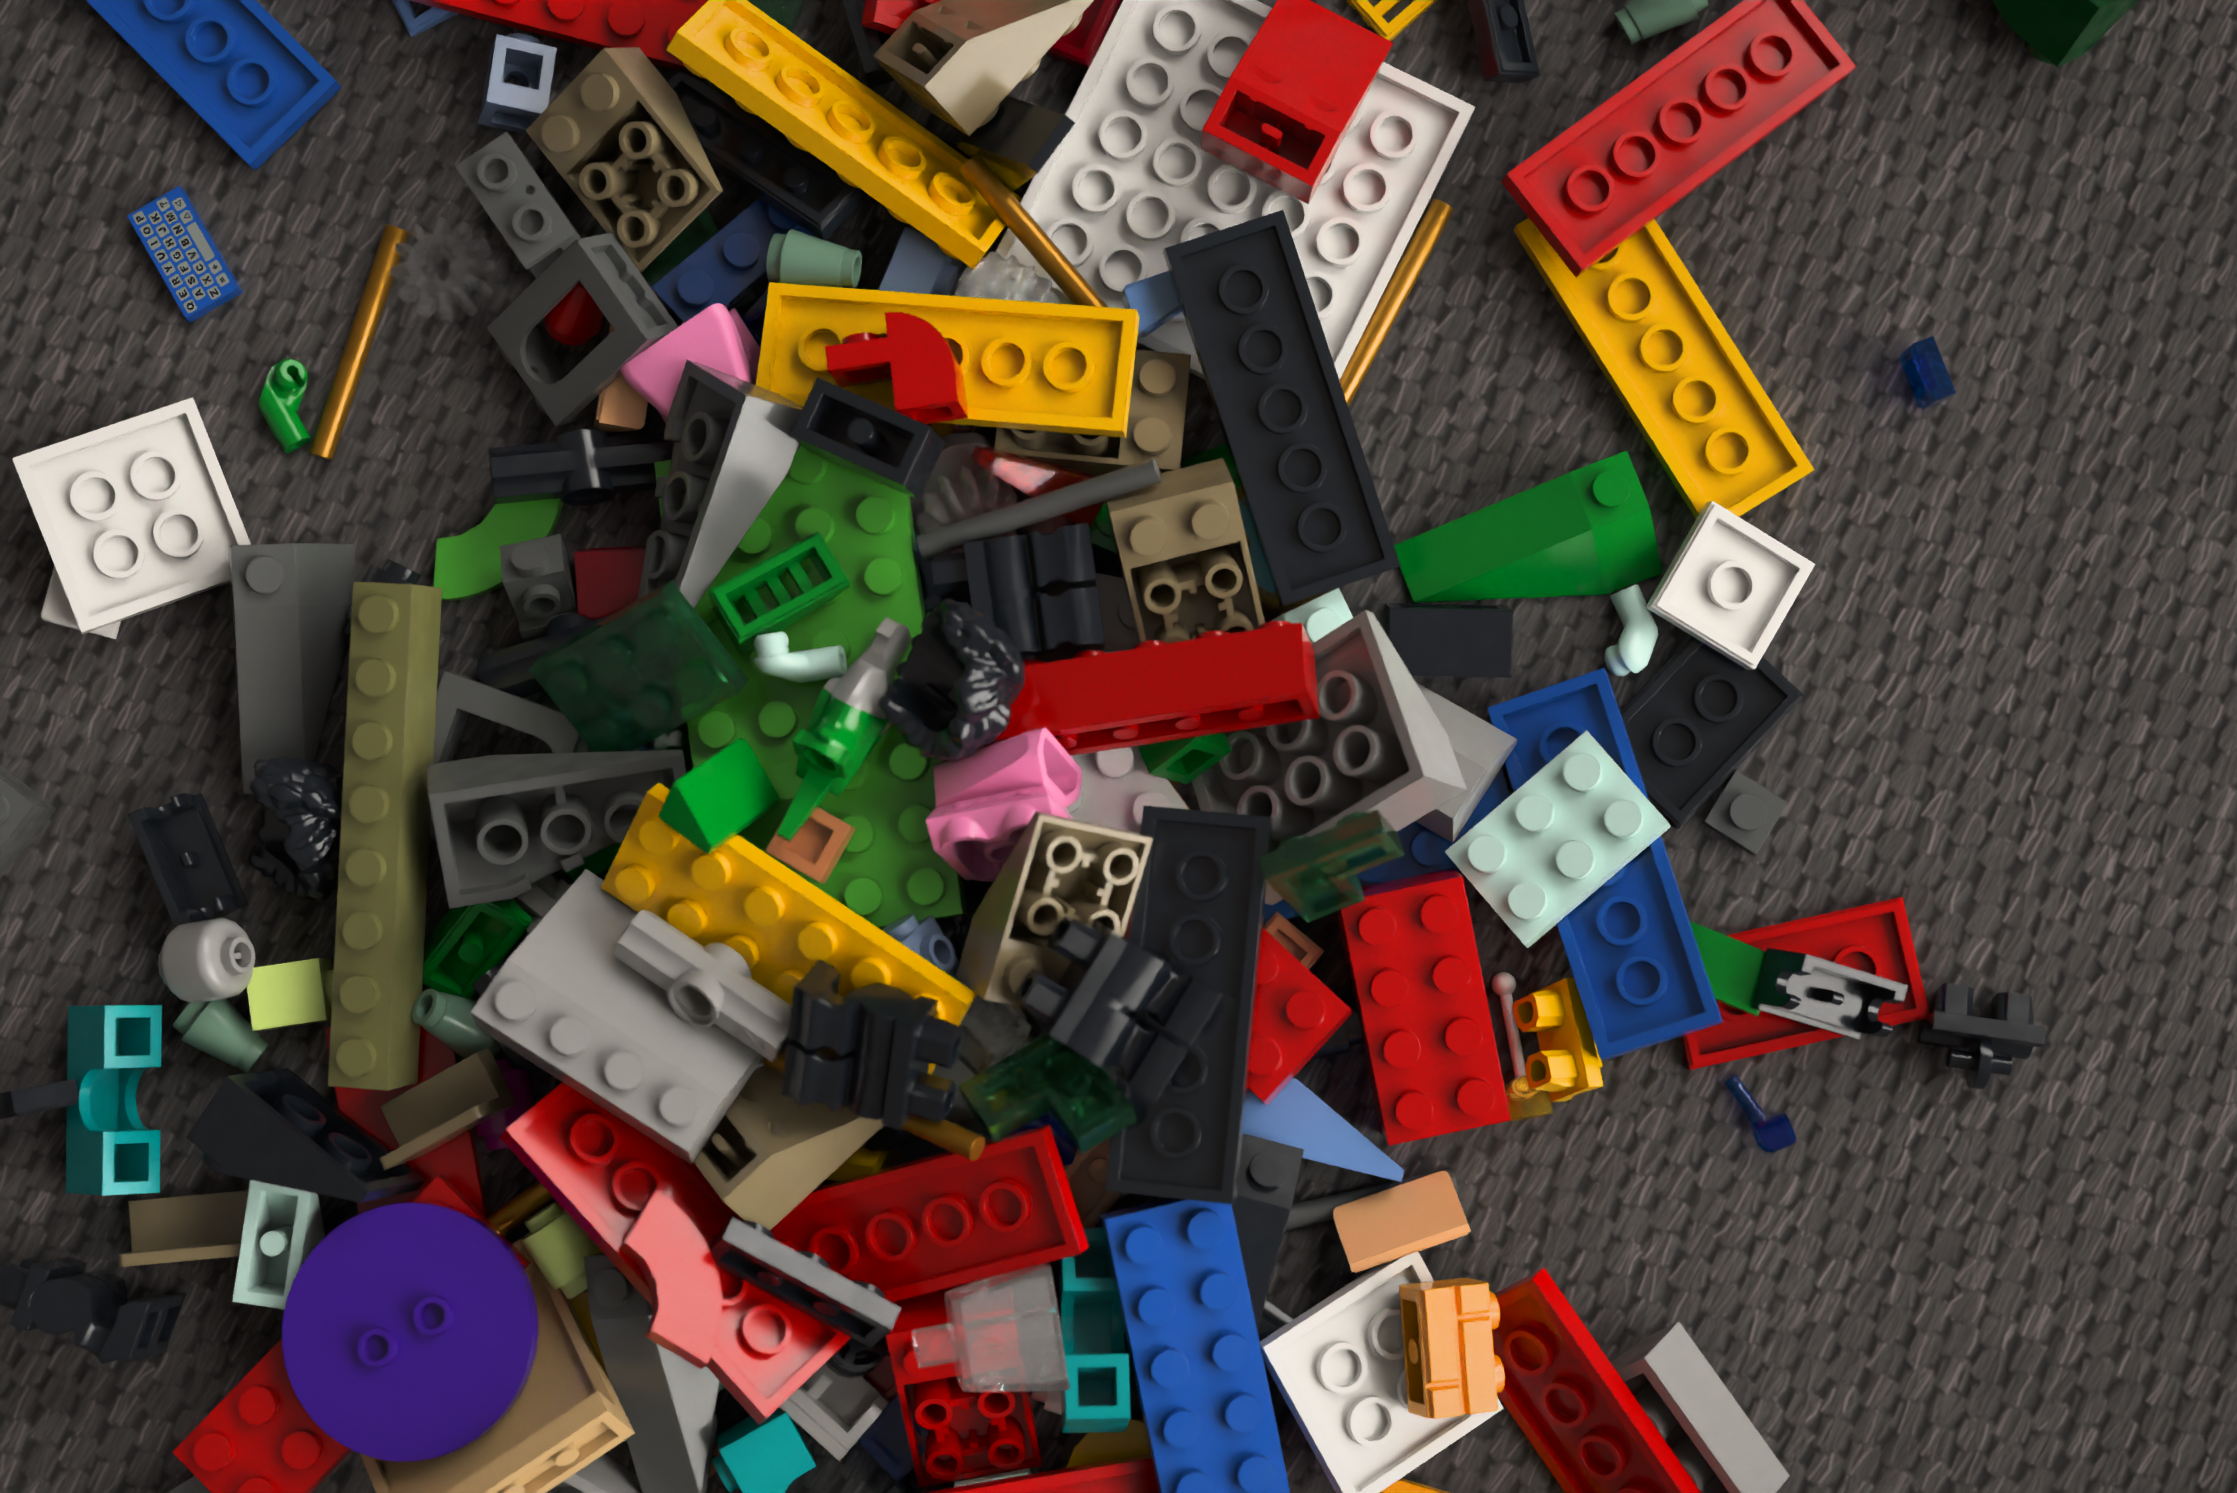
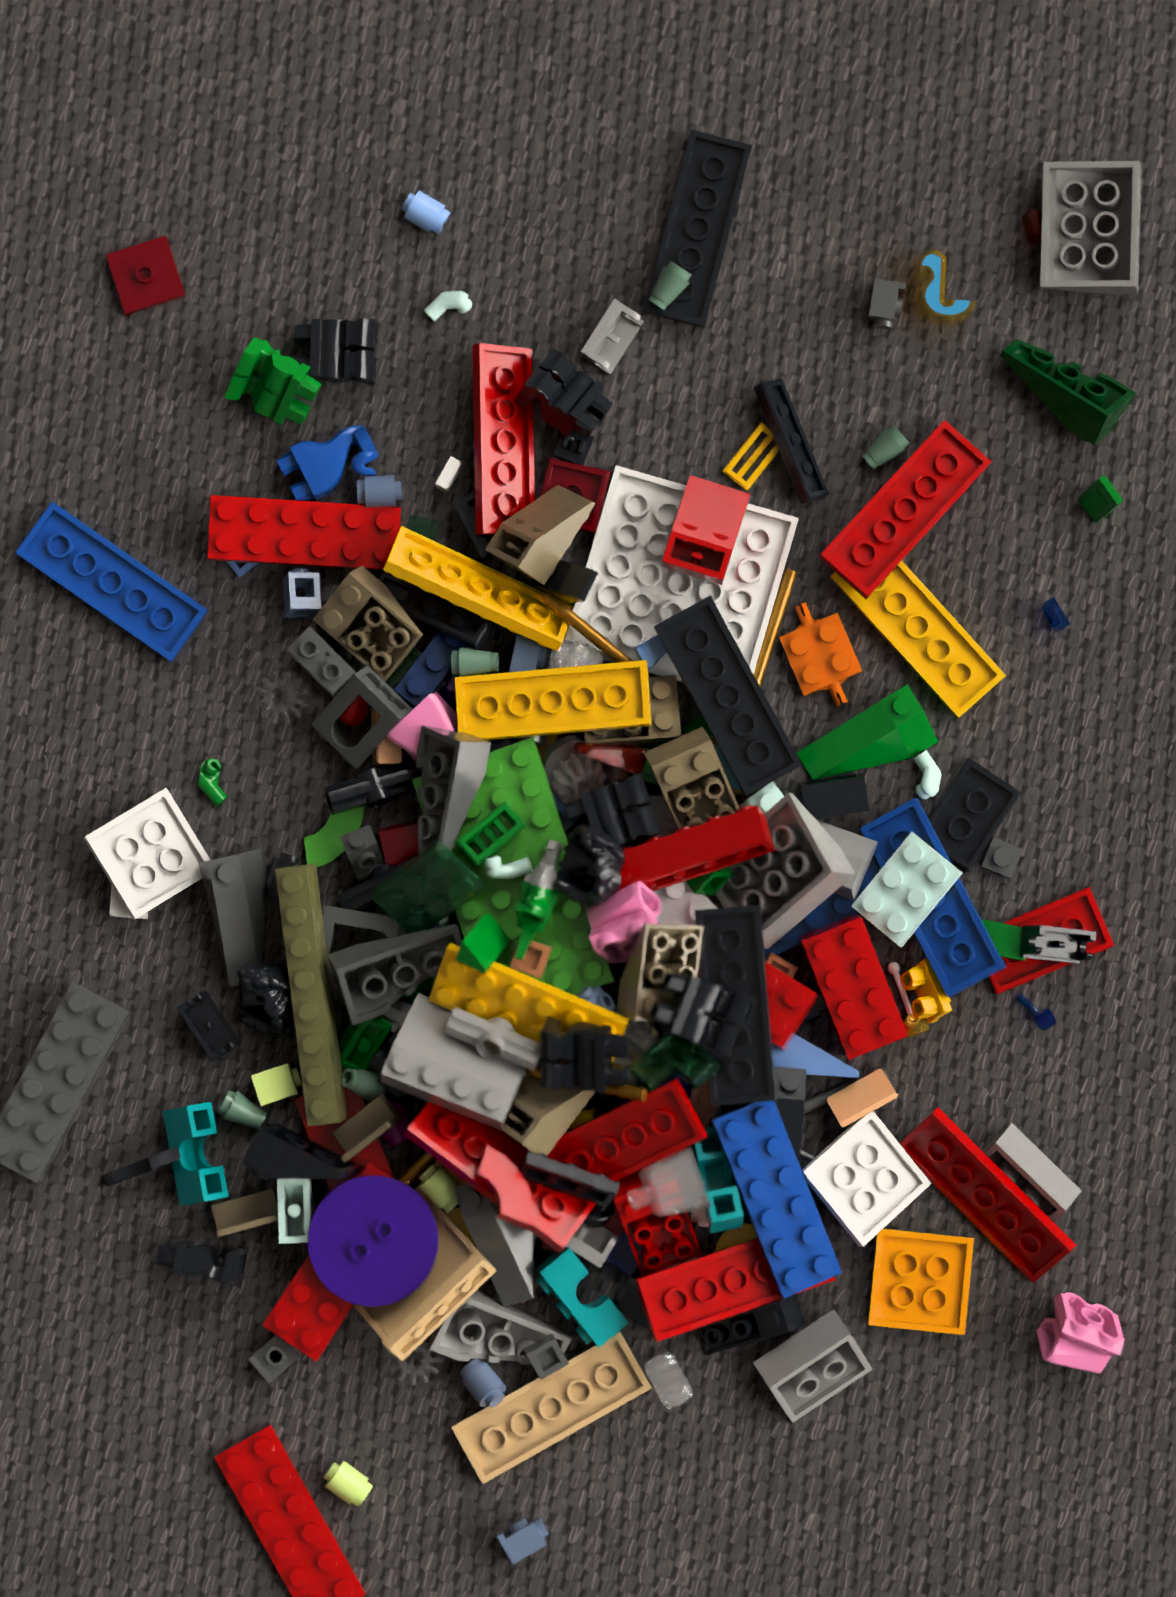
camera: 10 degrees left, 0 degrees up
(185, 254) = (144, 712): tile -> none
(207, 960) = (232, 1074): light grey head -> none
(358, 344) = (243, 741): pearl gold bar -> none
(868, 438) = (523, 751): black brick -> none
(916, 359) = (540, 705): red brick -> none
(1039, 508) = (614, 770): dark grey bar -> none
(1320, 870) = (789, 927): clear green plate -> none
(1450, 1347) = (898, 1155): light orange brick -> none
(1471, 370) = (820, 654): none -> orange plate
(1730, 585) = (973, 743): white plate -> none
(2007, 1033) = (1141, 954): black hips -> none
(2053, 168) = (1100, 499): none -> green slope

